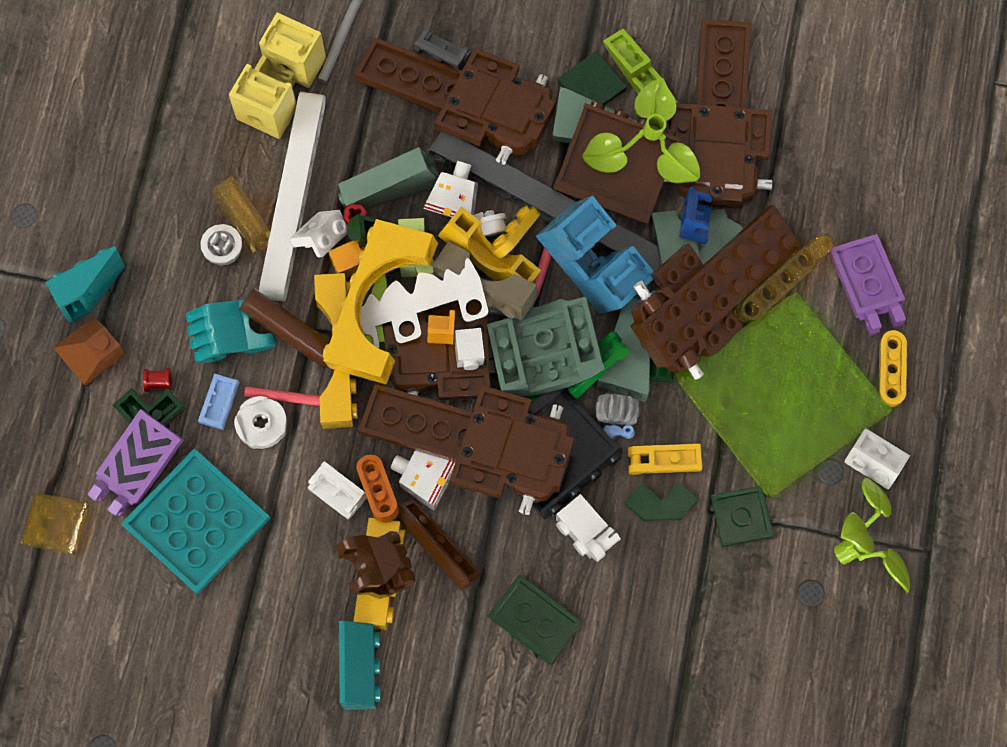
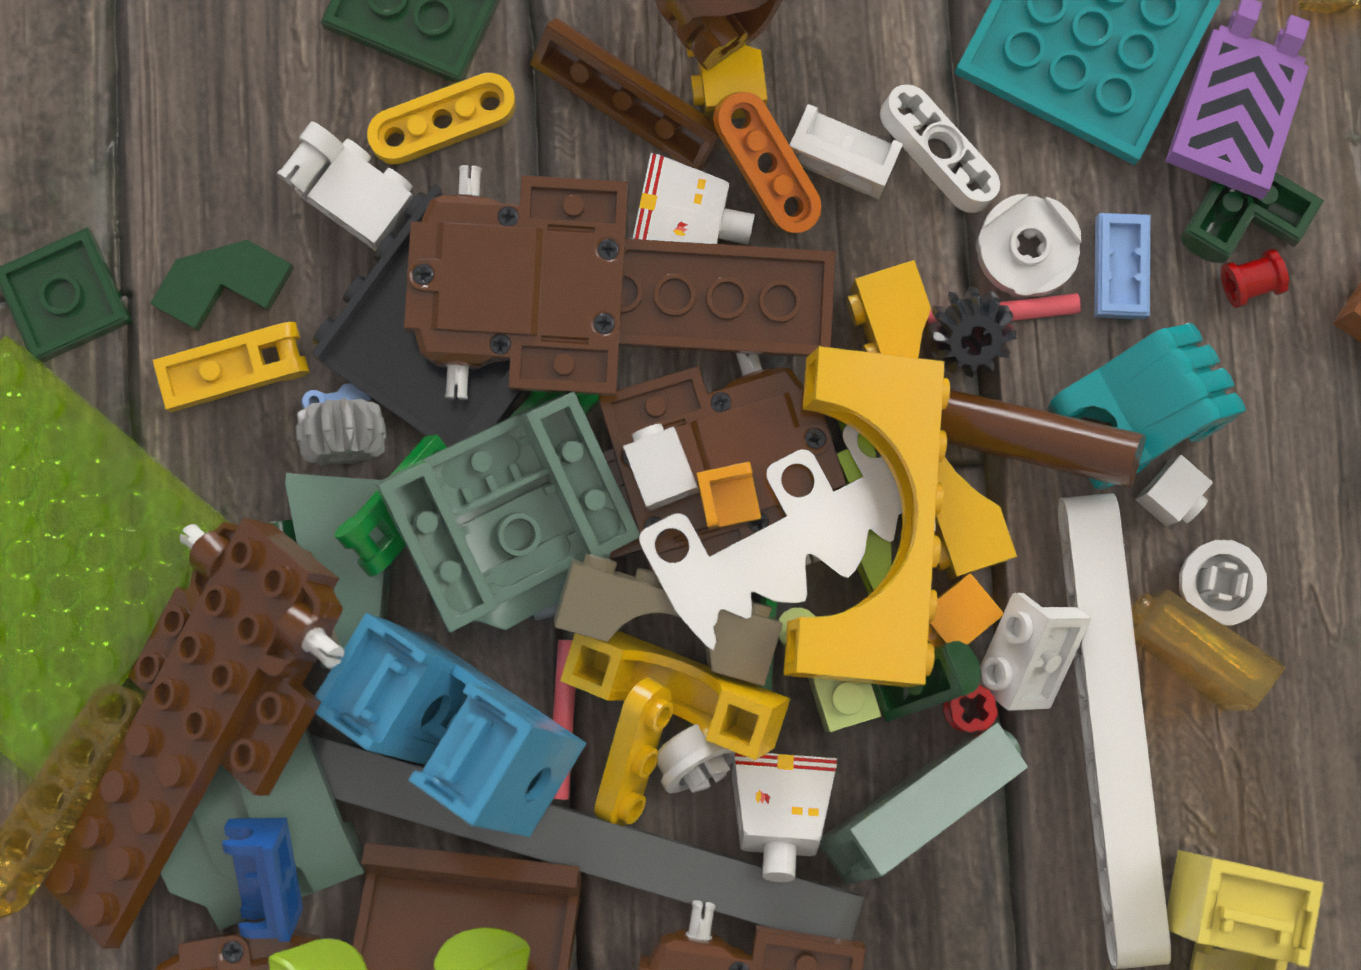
camera: 160 degrees right, 10 degrees up
(229, 288) = (1175, 492): none -> white plate
(291, 500) = (939, 127): none -> white beam
(303, 384) = (982, 343): none -> black gear
(543, 549) = (417, 118): none -> yellow plate

